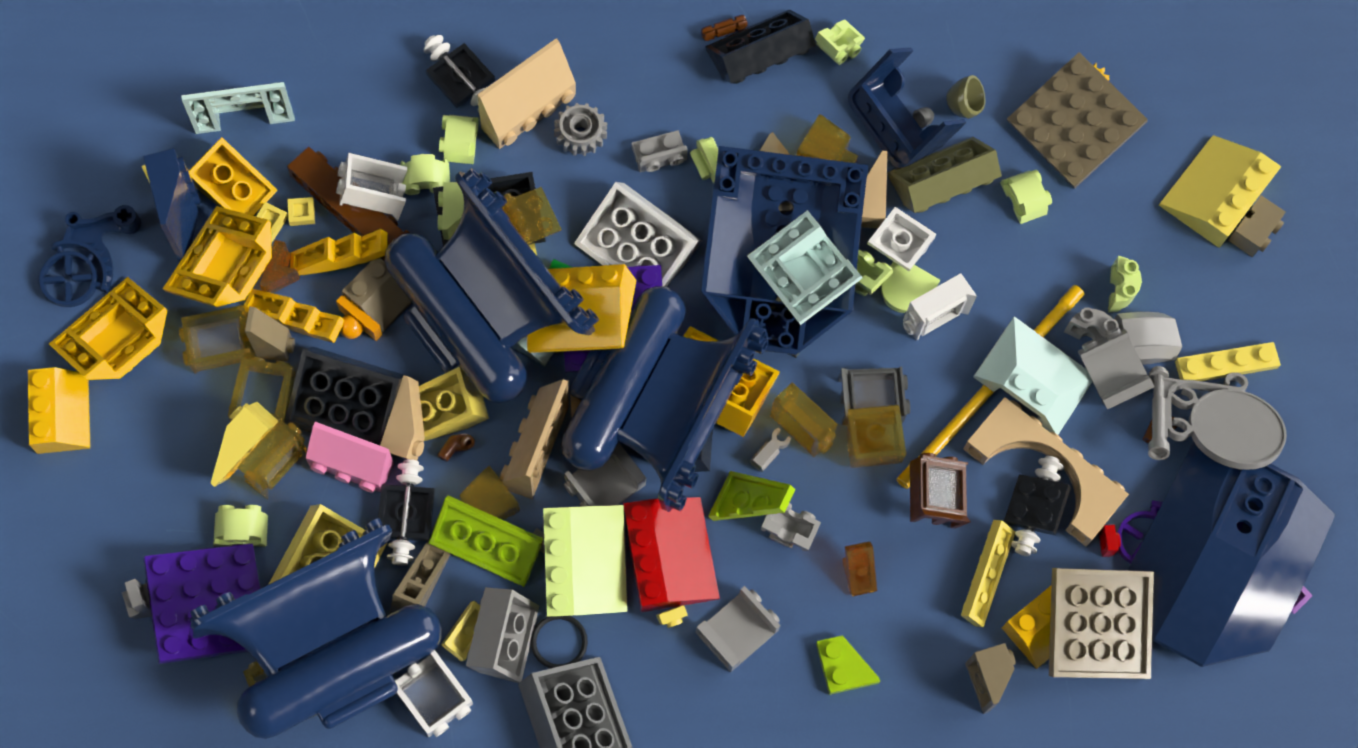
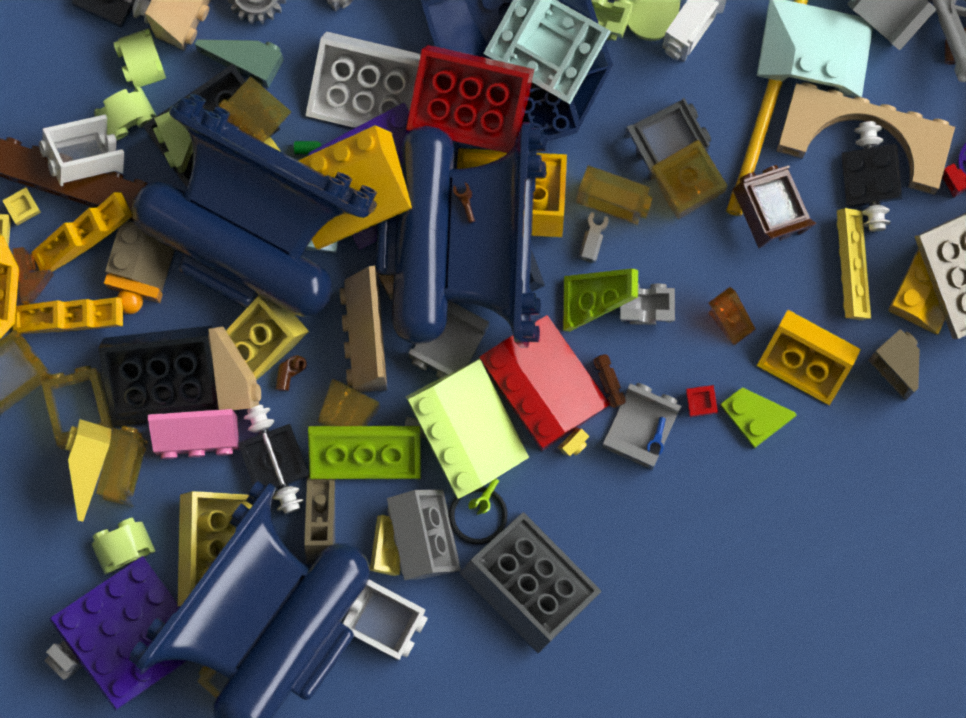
camera: 15 degrees left, 10 degrees up
(268, 337) = (58, 349): dark tan slope -> none
(553, 177) = (248, 56): none -> sand green slope
(569, 630) = (483, 501): none -> lime hand
(672, 360) = (465, 200): none -> reddish brown hand
(717, 282) = (470, 97): none -> red slope
(728, 577) = (609, 380): none -> reddish brown axle
(748, 644) = (658, 435): none -> blue hand
(801, 631) = (701, 401): none -> red plate
(912, 635) = (809, 357): none -> yellow slope

